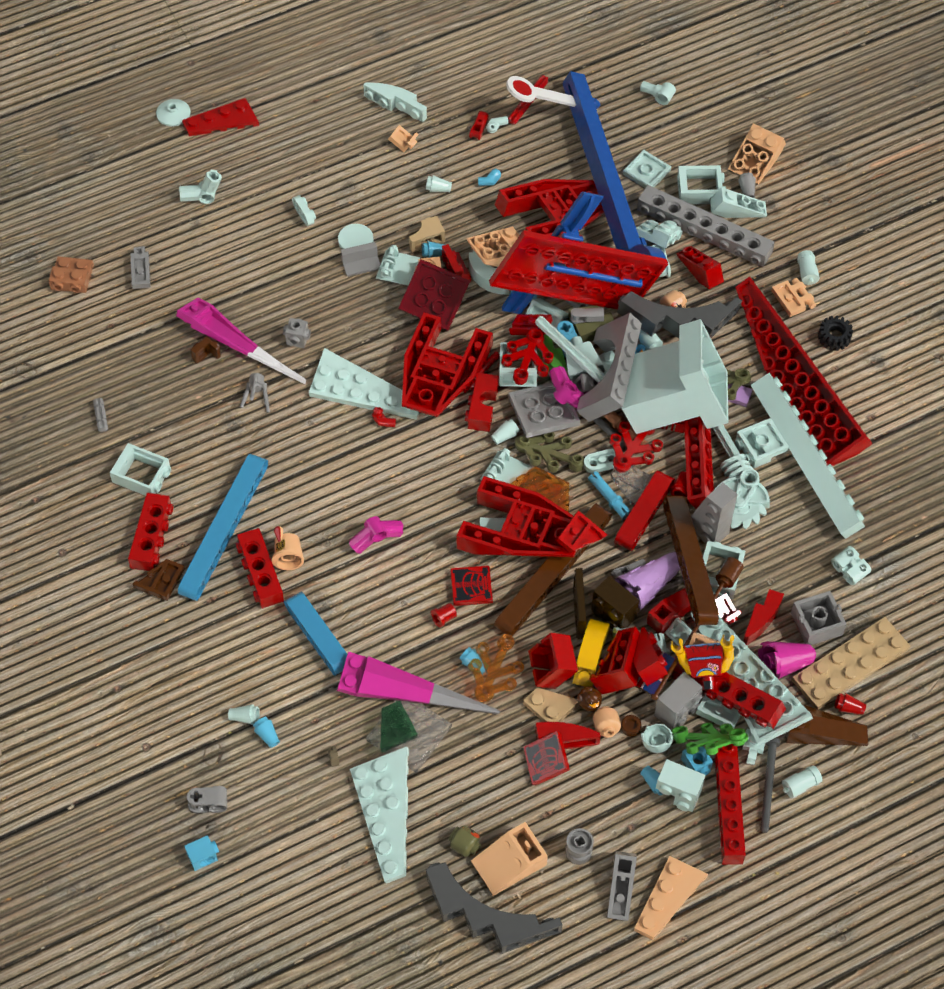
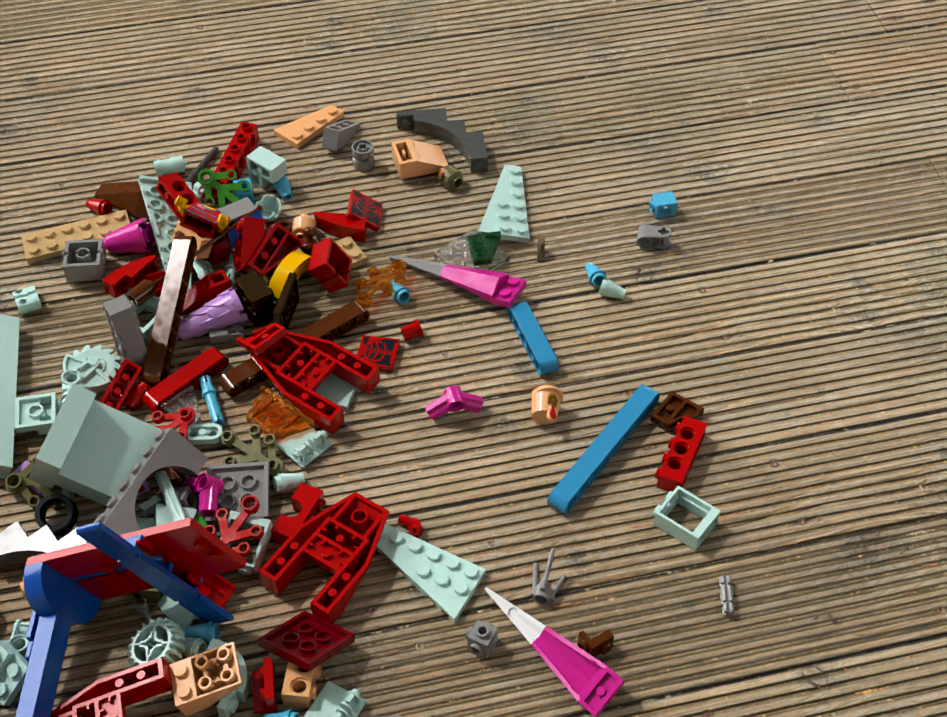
camera: 165 degrees left, 10 degrees down
(254, 541) = (576, 401): red brick -> none

